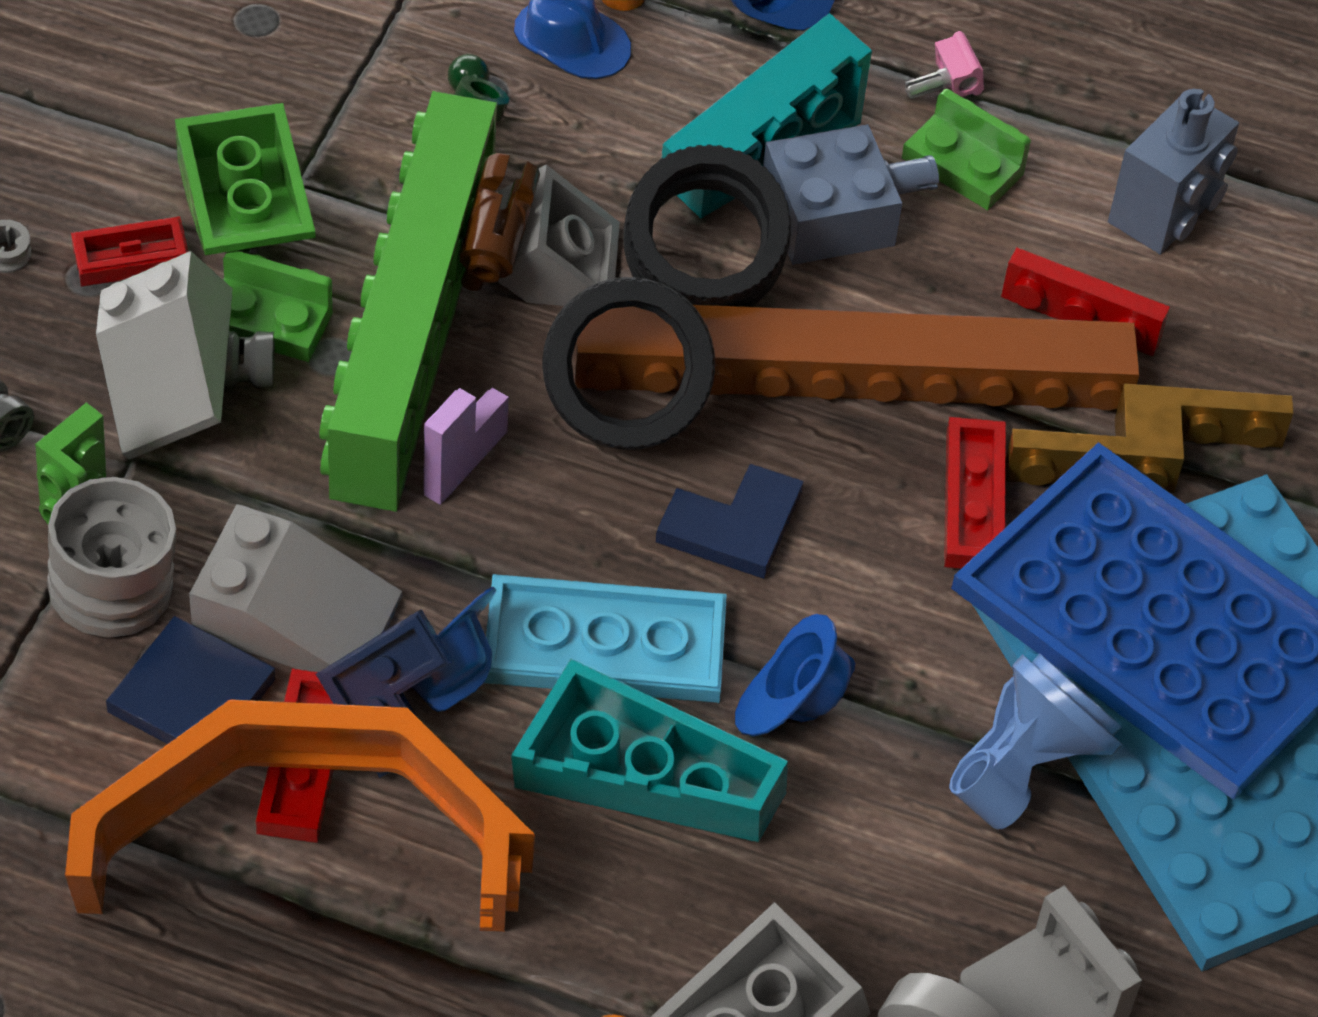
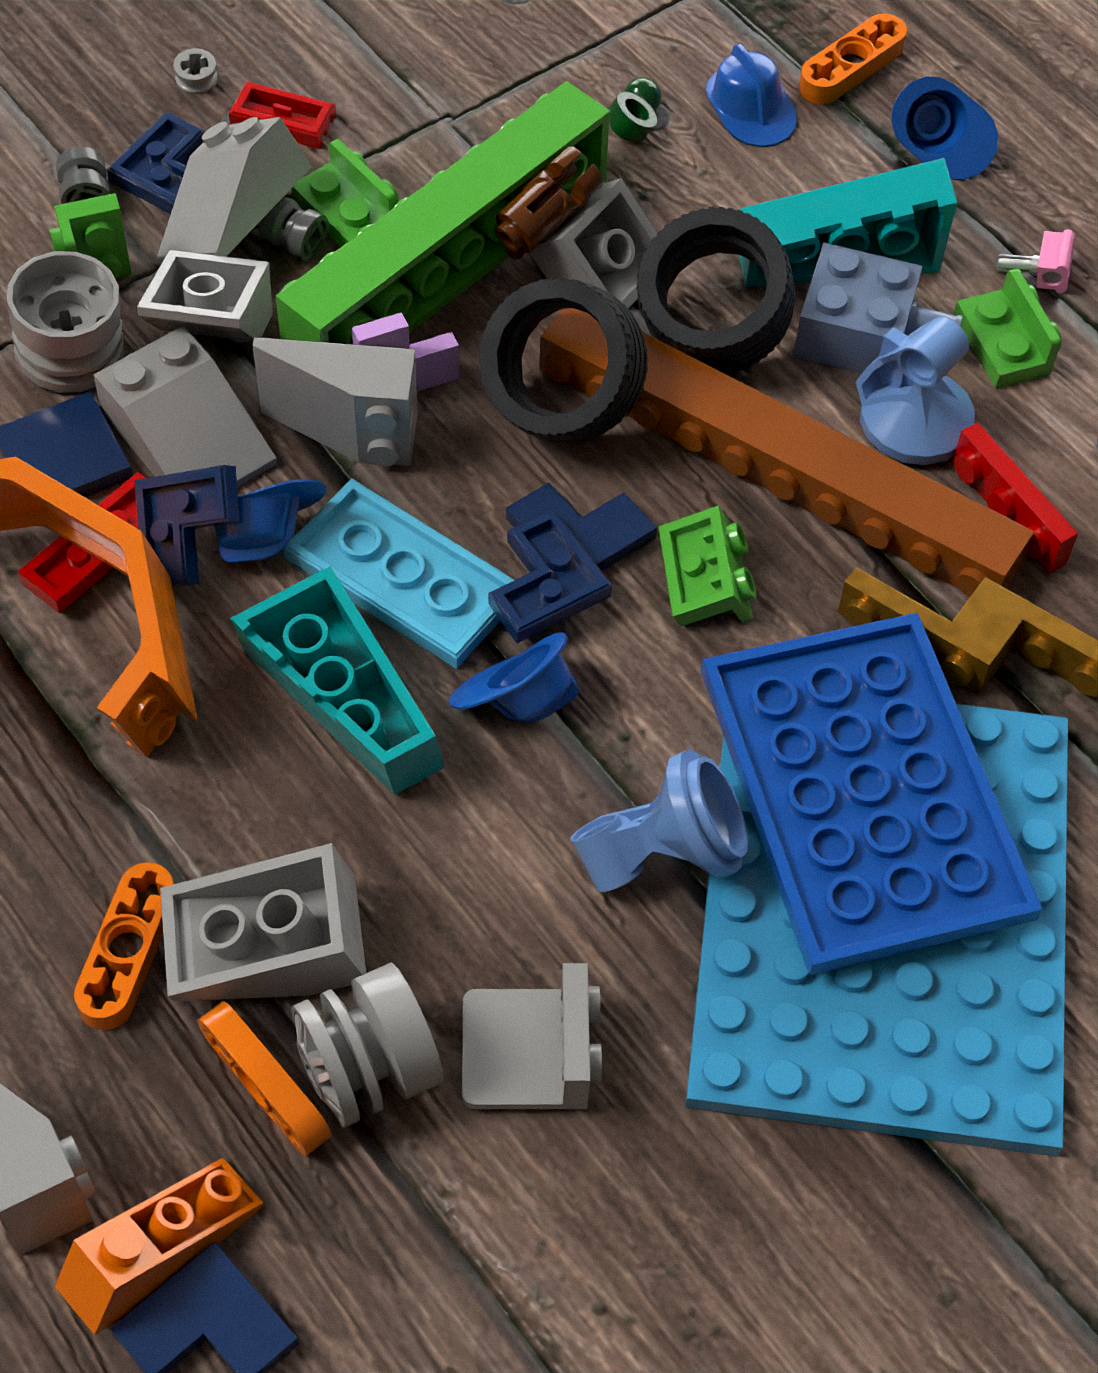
camera: 35 degrees right, 5 degrees up
(42, 364) = (157, 161): none -> dark blue tile
(233, 462) = (209, 296): none -> light grey slope
(242, 179) = (390, 92): bright green slope -> none
(441, 499) = (342, 396): none -> light grey slope
(761, 572) = (559, 583): none -> dark blue tile
(872, 497) = (706, 567): none -> bright green bracket
(937, 246) = (908, 400): none -> medium blue piece
(973, 487) = (798, 598): red plate -> none

